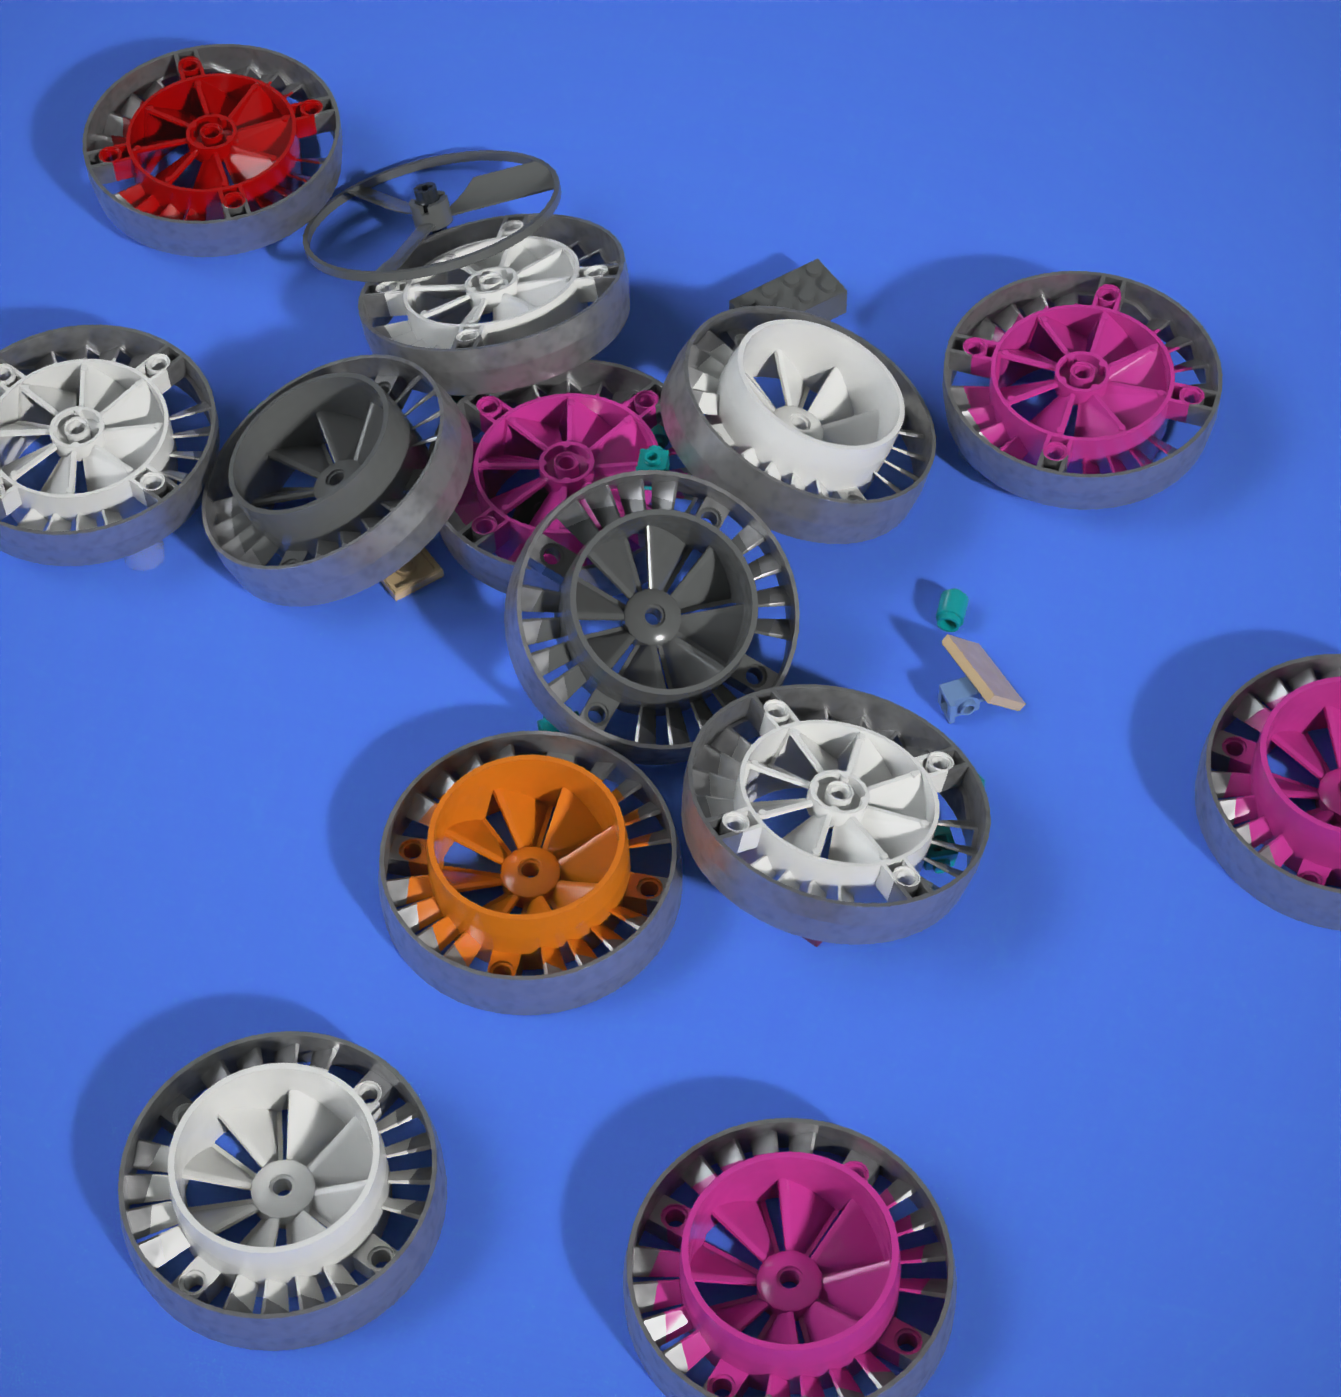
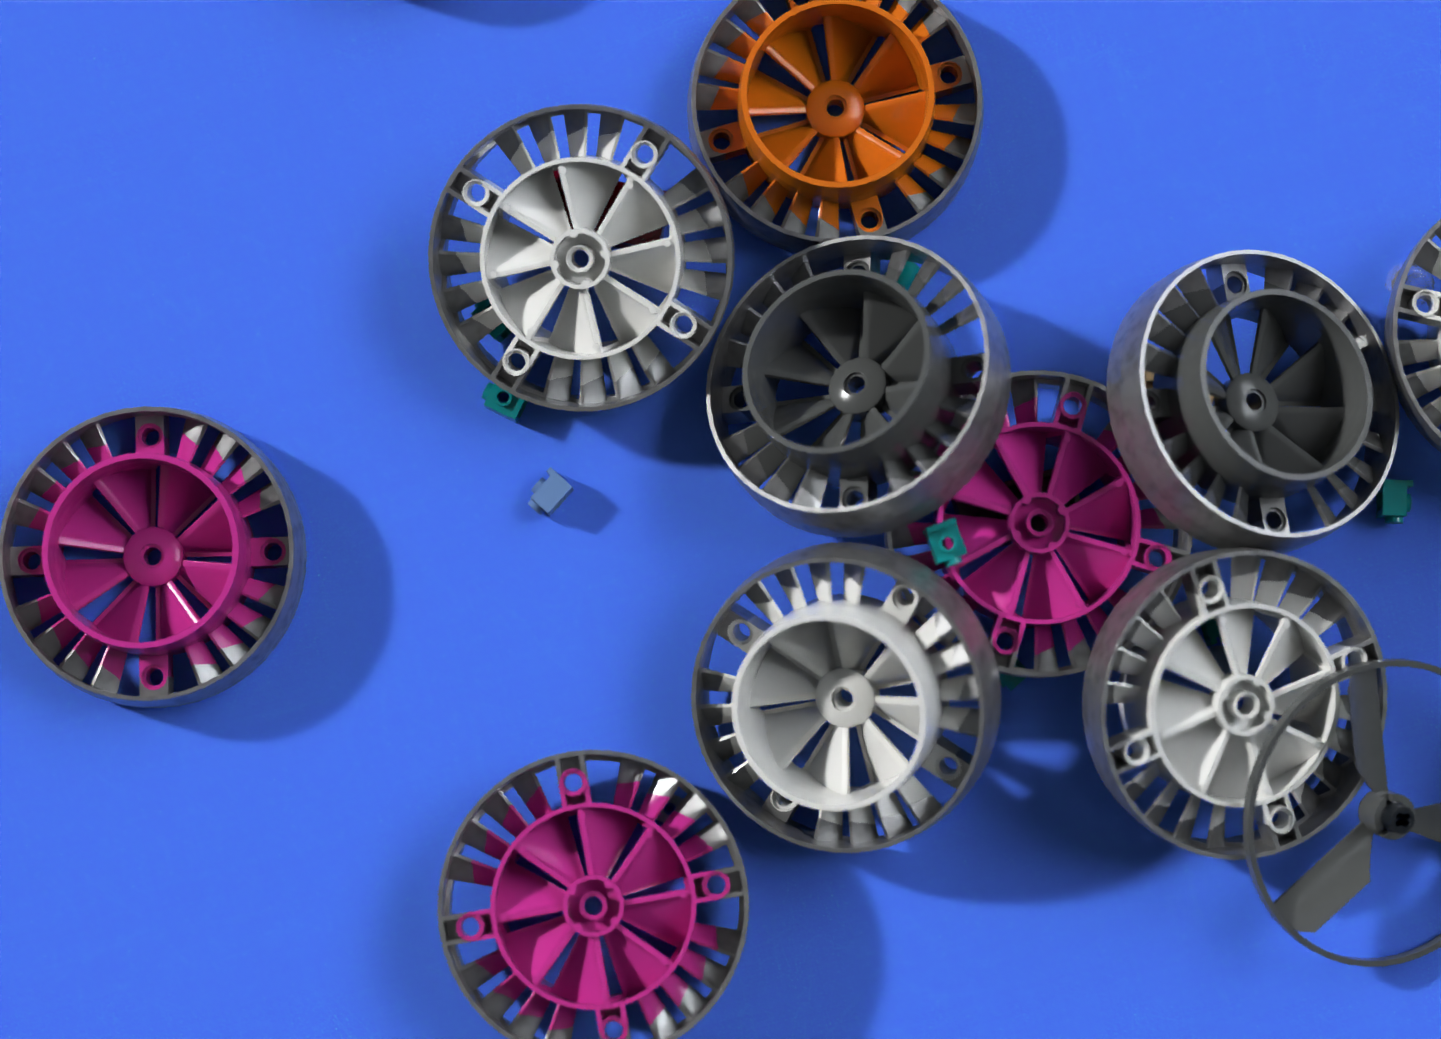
camera: 150 degrees right, 30 degrees up
(804, 289) = (958, 905): dark grey brick -> none
(951, 610) = (606, 593): teal brick -> none
(983, 673) = (539, 524): tile -> none

